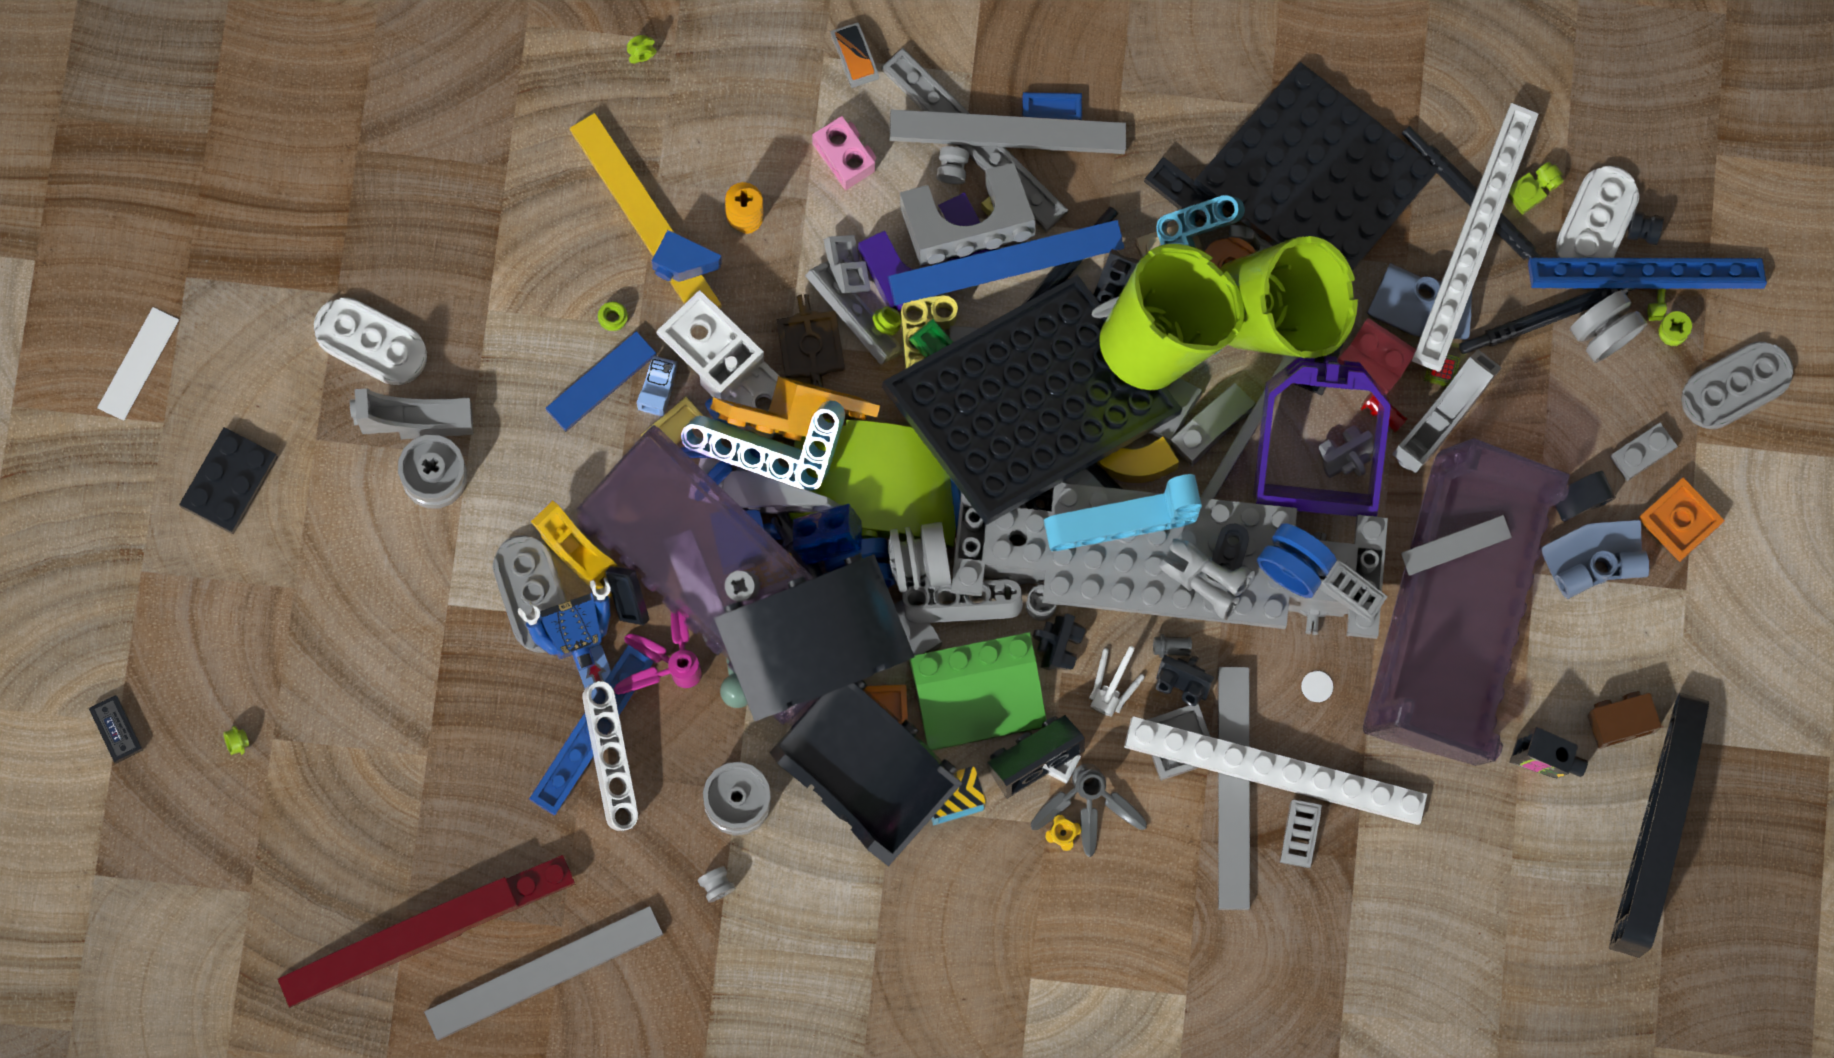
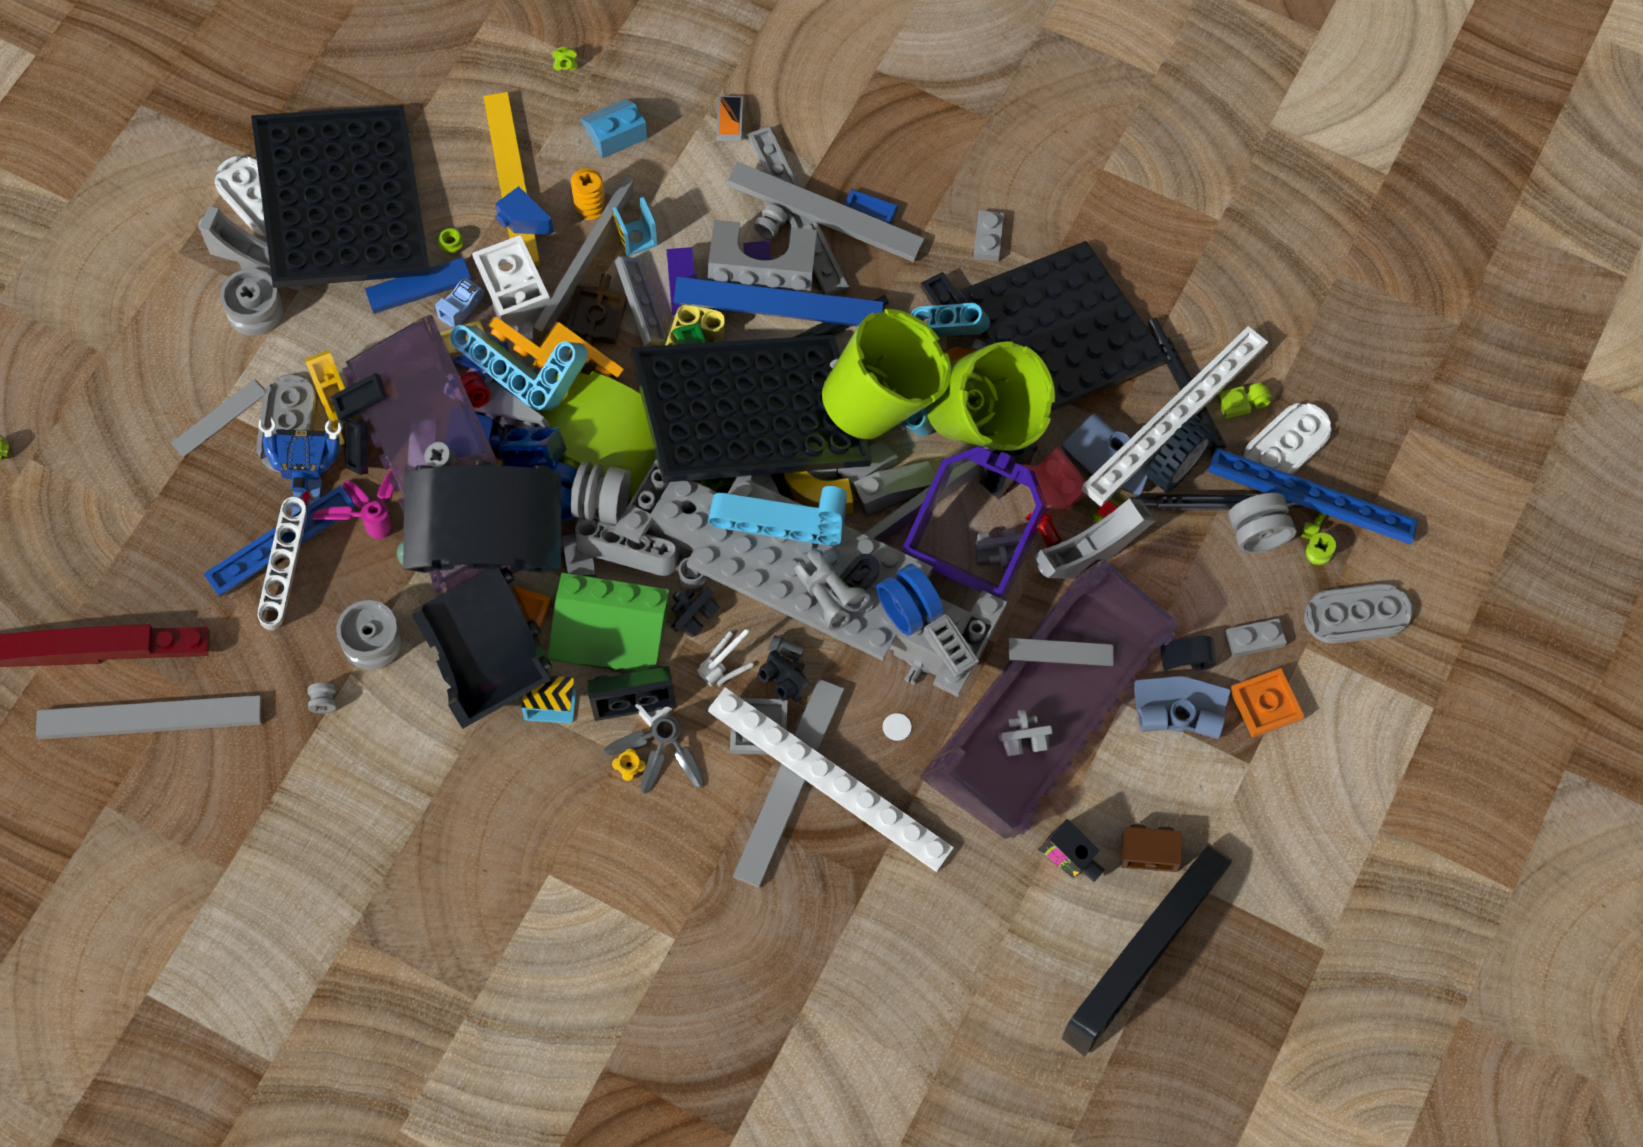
camera: 25 degrees right, 10 degrees down
(138, 364) = (72, 152): white sticker -> none
(228, 480) = (95, 257): black plate -> none
(454, 615) = (218, 418): none -> light grey sticker
(471, 311) = (339, 196): none -> black plate
(615, 545) = (359, 397): none -> black tile
(731, 110) = (615, 127): none -> dark azure slope
(733, 486) = (476, 389): none -> red wheel
(773, 288) = (582, 261): none -> light grey tile
(818, 218) = (645, 226): none -> medium azure piece
(838, 155) = (685, 184): bright pink brick -> none
(845, 265) = (651, 264): light grey slope -> none
(887, 320) = (664, 315): lime plate -> none
(1192, 93) = (988, 236): none -> light grey plate
(1313, 823) = (841, 818): light grey slope -> none
(1466, 643) = (1038, 735): none -> light grey hips
(1499, 281) = (1181, 453): none -> black wheel
(1645, 227) = (1325, 460): black wheel -> none

